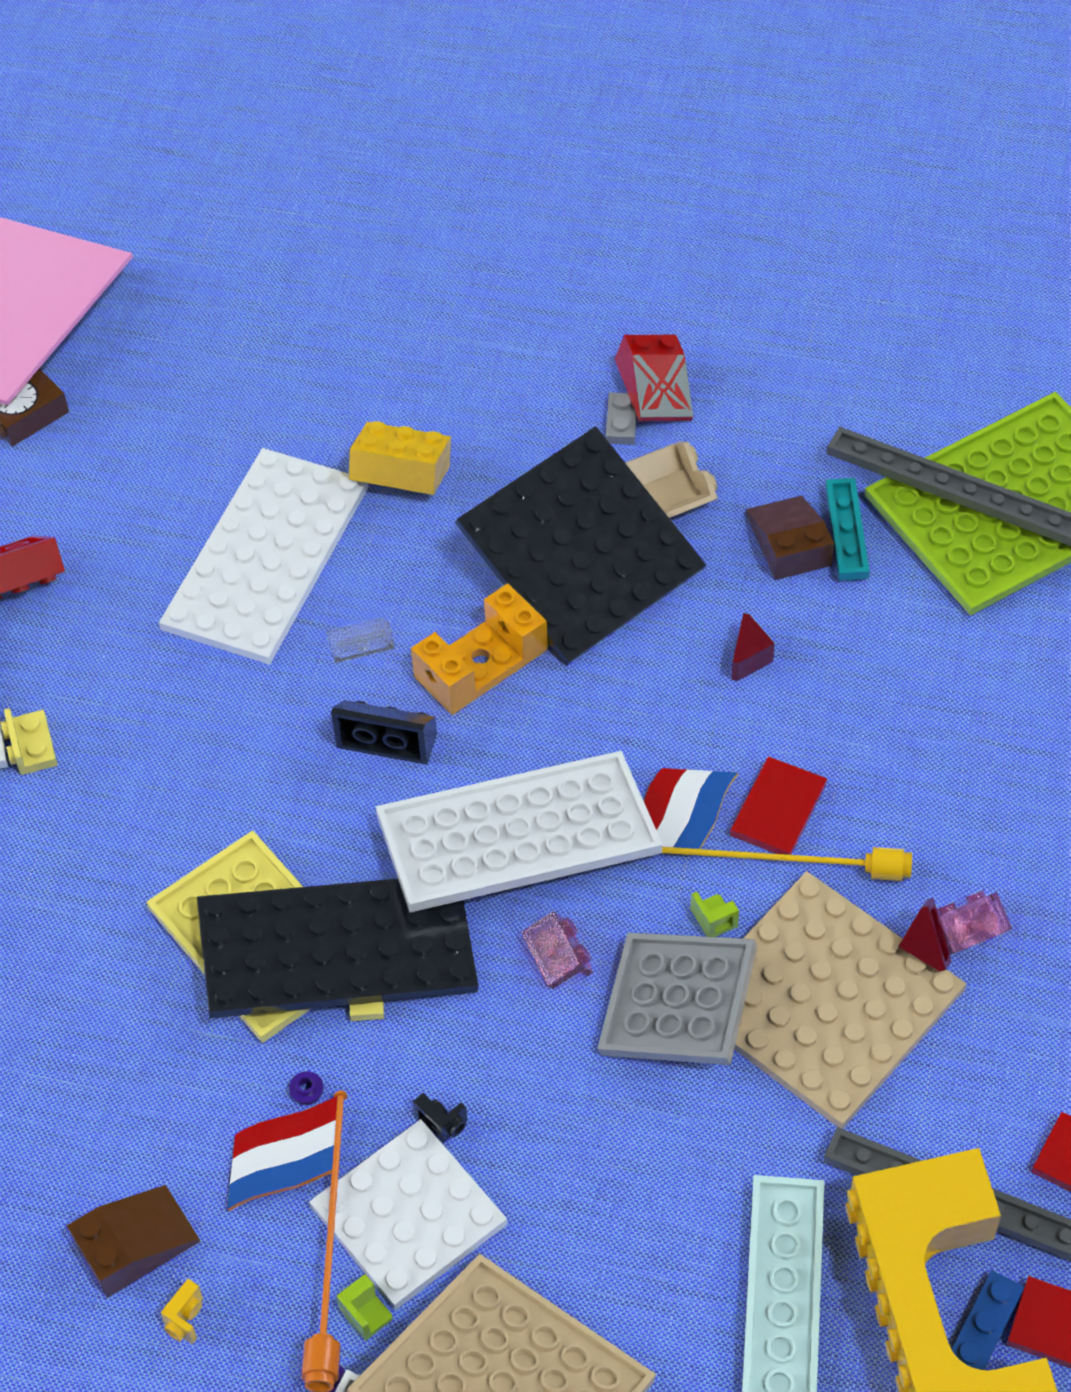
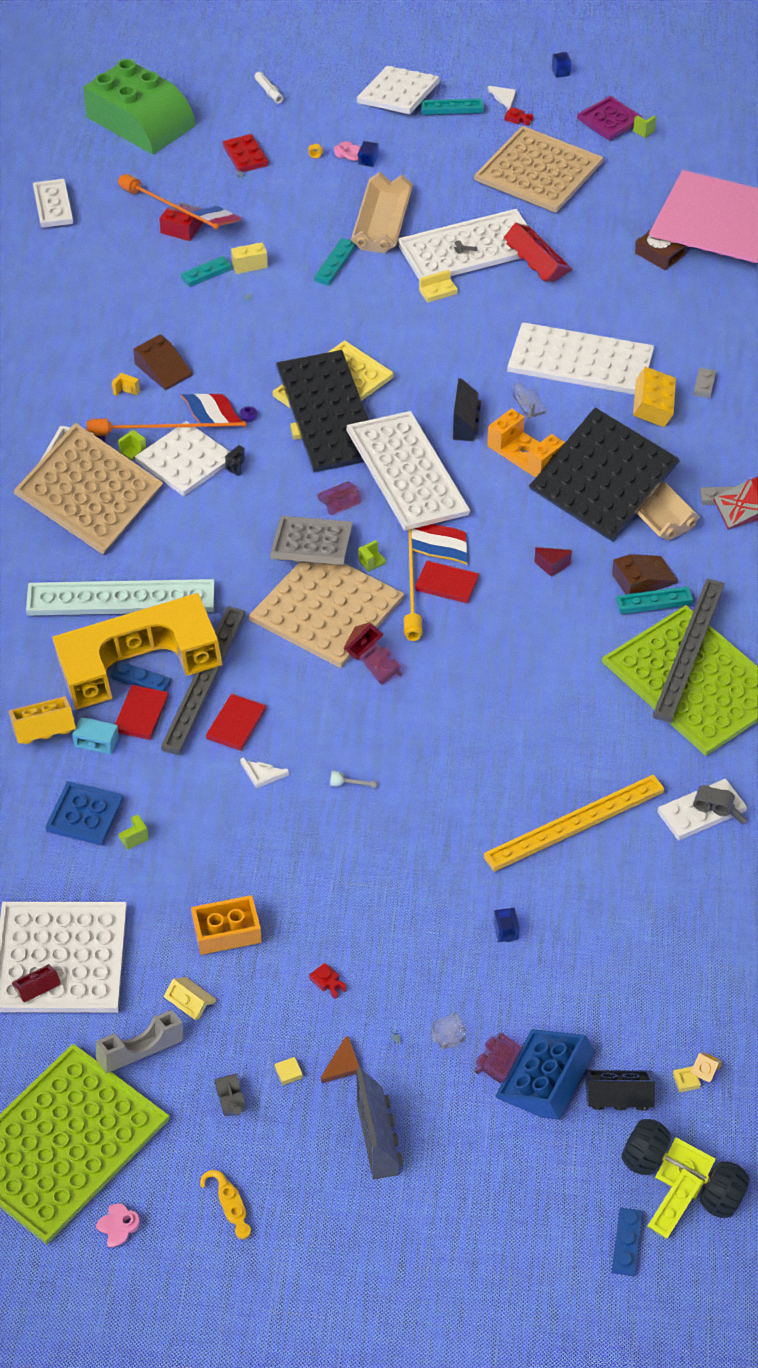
camera: 80 degrees right, 5 degrees down
(361, 398) = (704, 383): none -> light grey plate

